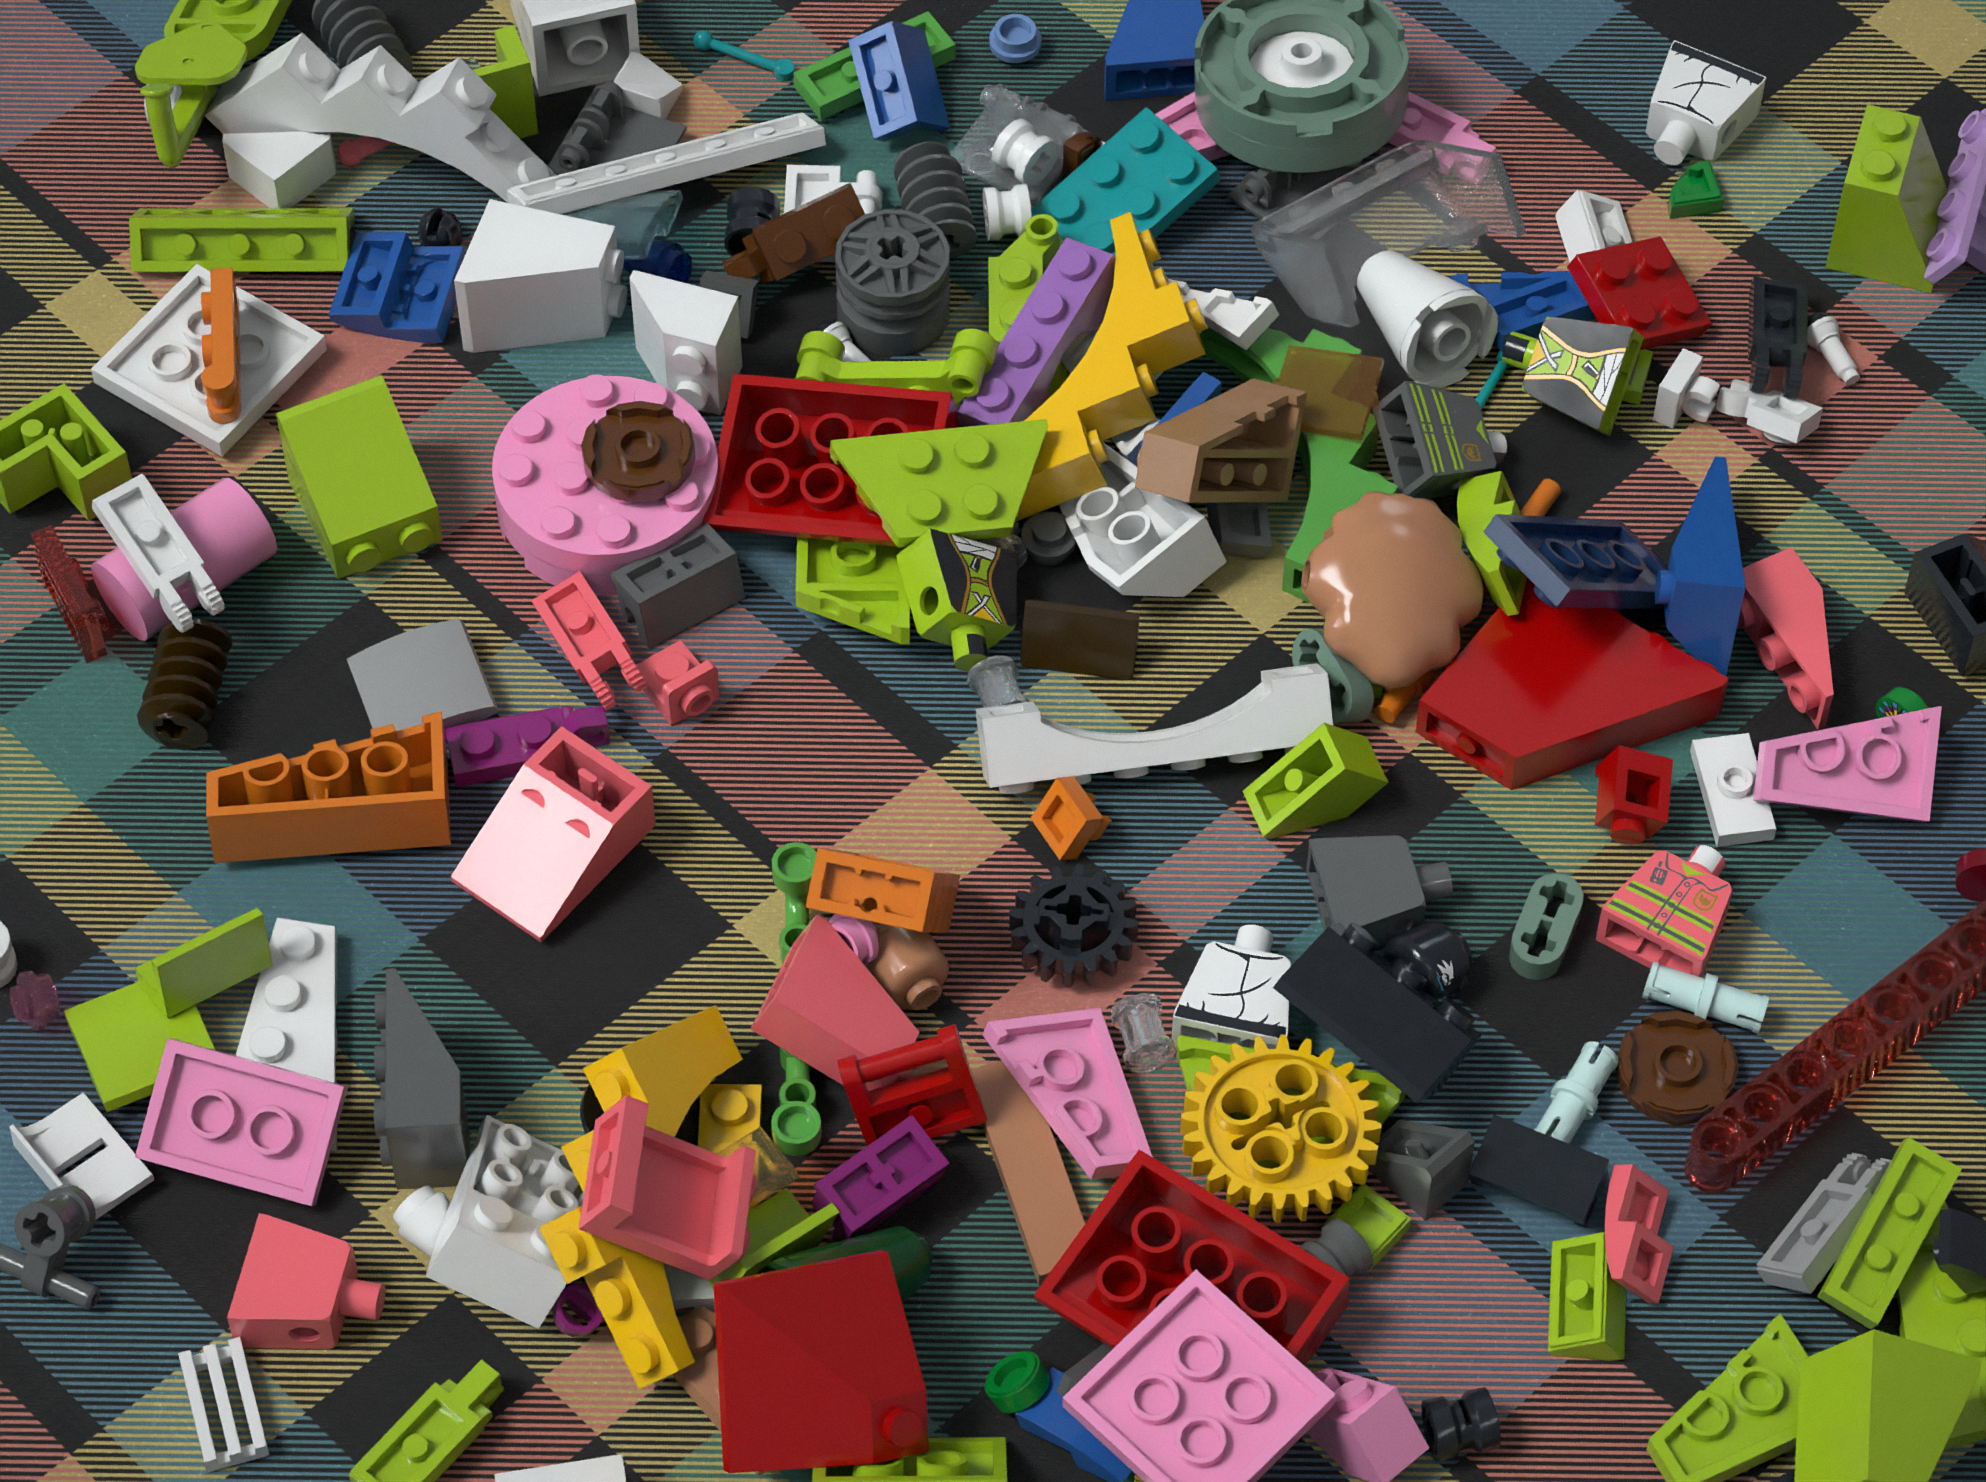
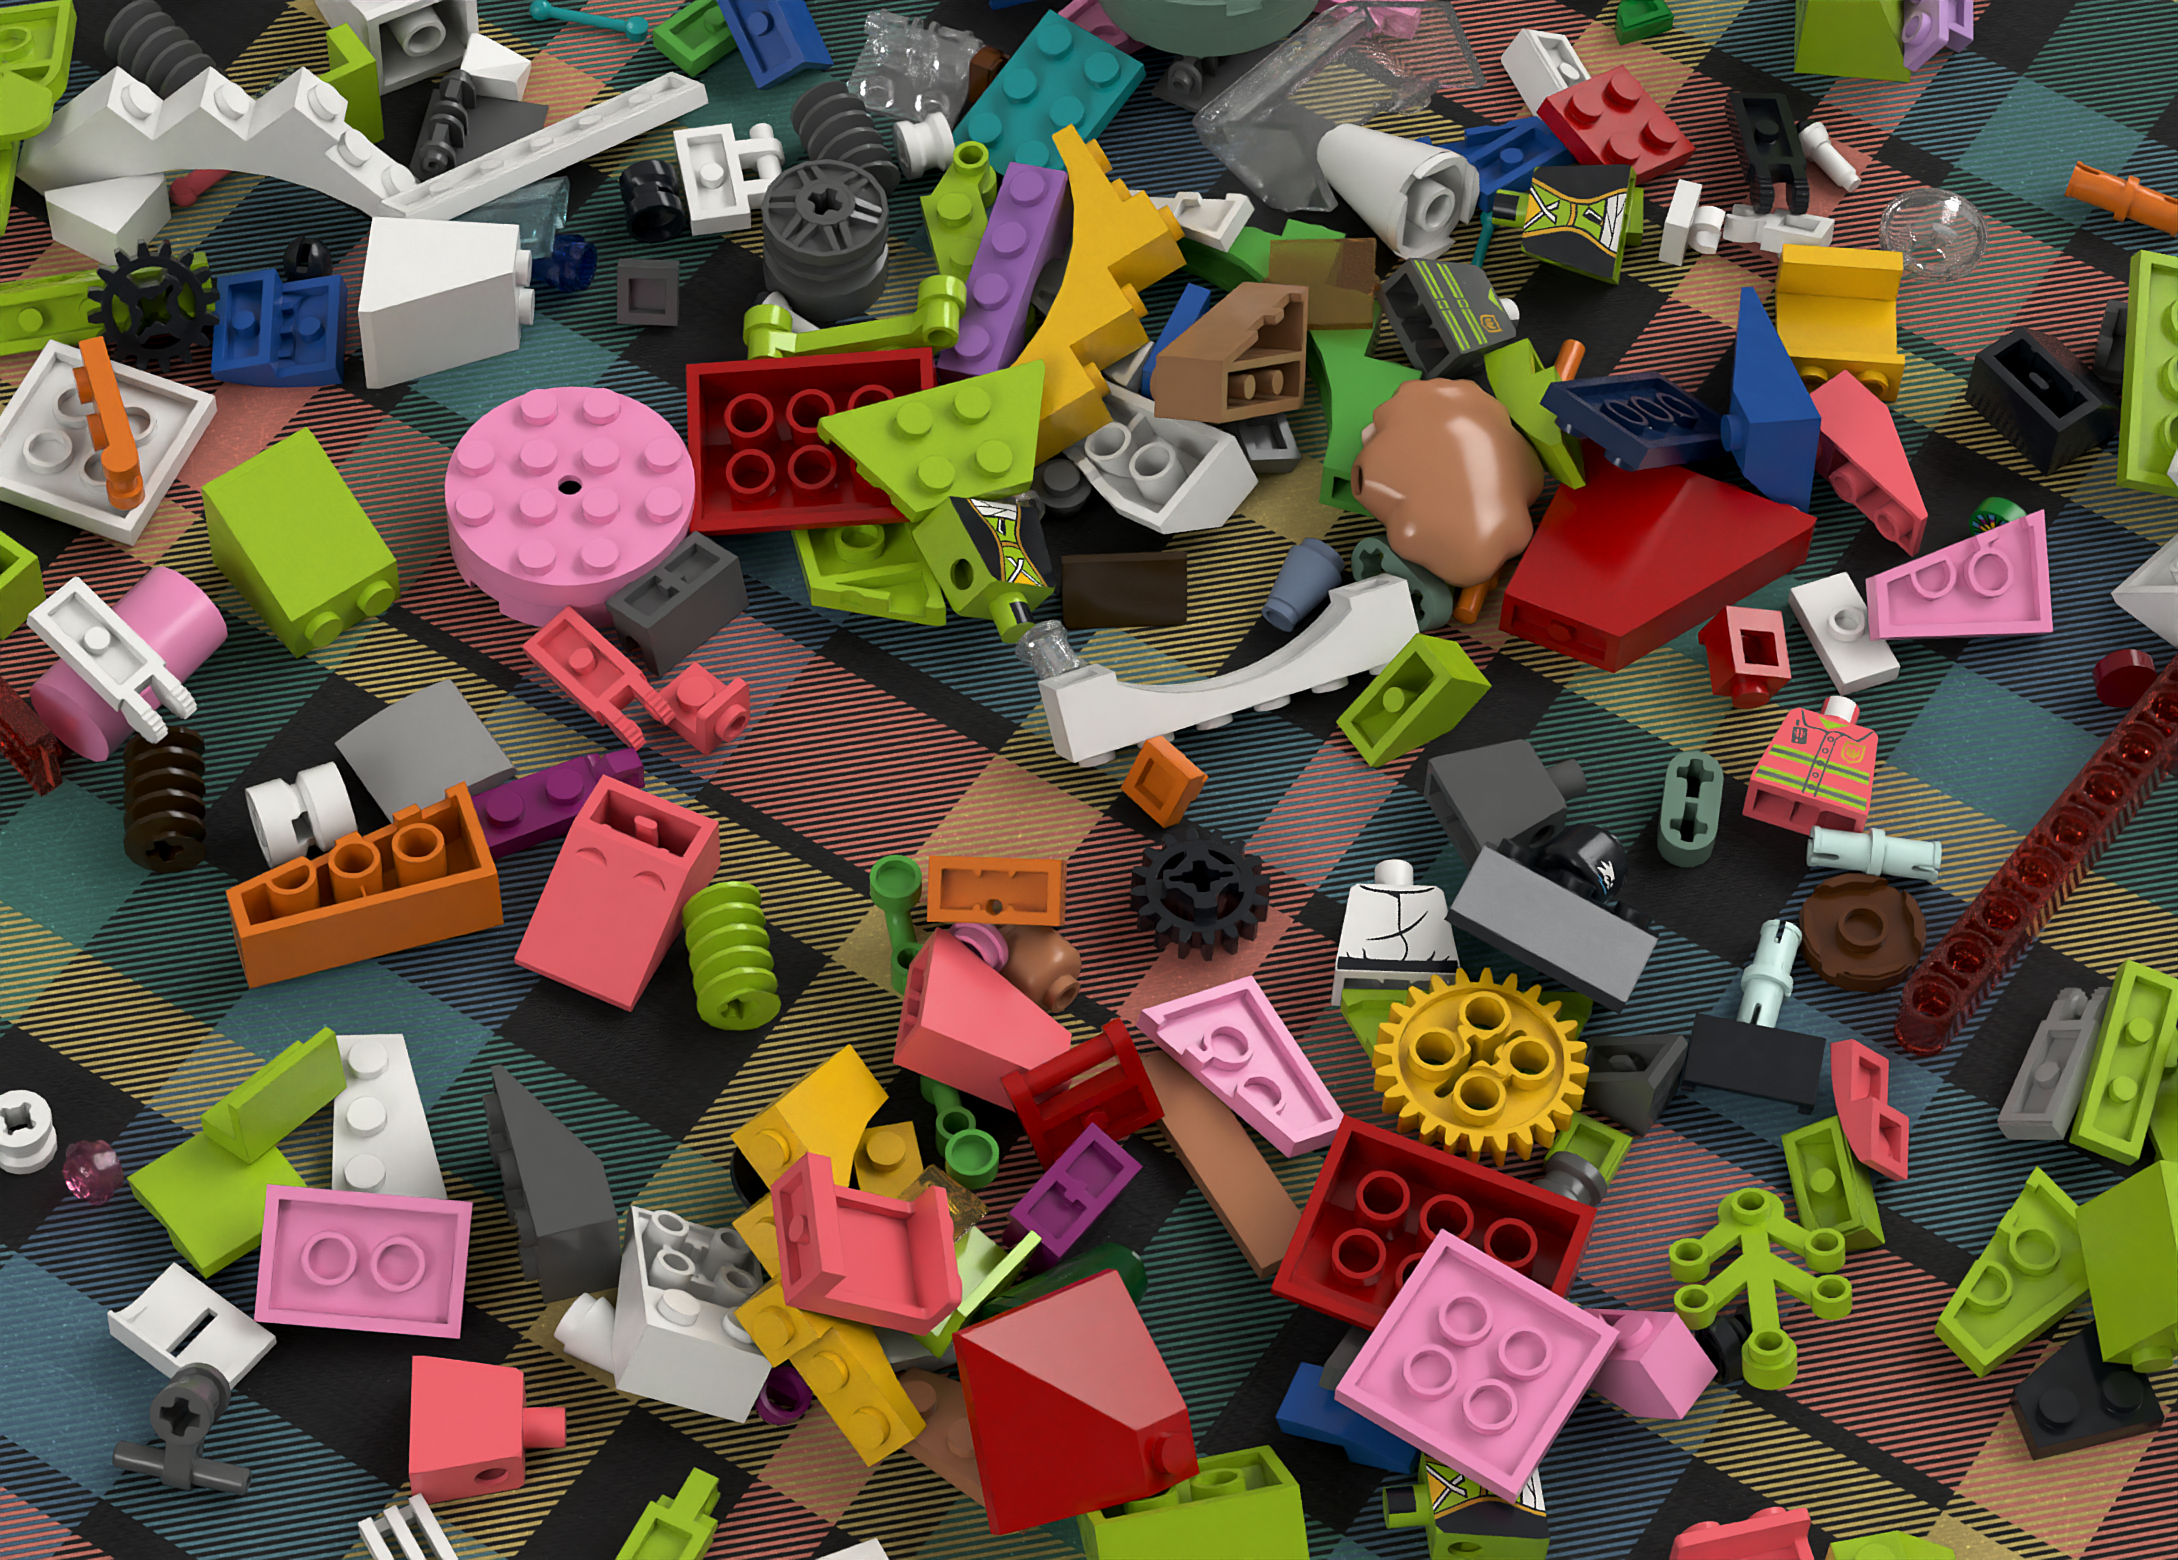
camera: 15 degrees left, 0 degrees up
(274, 232) = (175, 321): none -> black gear
(318, 710) = (317, 796): none -> white wheel
(638, 452) = (607, 465): reddish brown tile -> none
(638, 908) = (730, 956): none -> lime piece
(687, 338) = (617, 333): white slope -> none
(796, 237) = (711, 206): reddish brown hinge -> none
(1017, 1382) = (1269, 1384): green tile -> none
(1025, 152) = (929, 77): white wheel -> none
(1143, 1033) = (1303, 994): clear bush -> none
(1242, 660) = (1302, 583): none -> sand blue cone
(1500, 1315) = (1753, 1221): none -> lime plant
(1804, 498) = (1840, 315): none -> yellow panel
(1913, 422) = (1937, 221): none -> clear piece

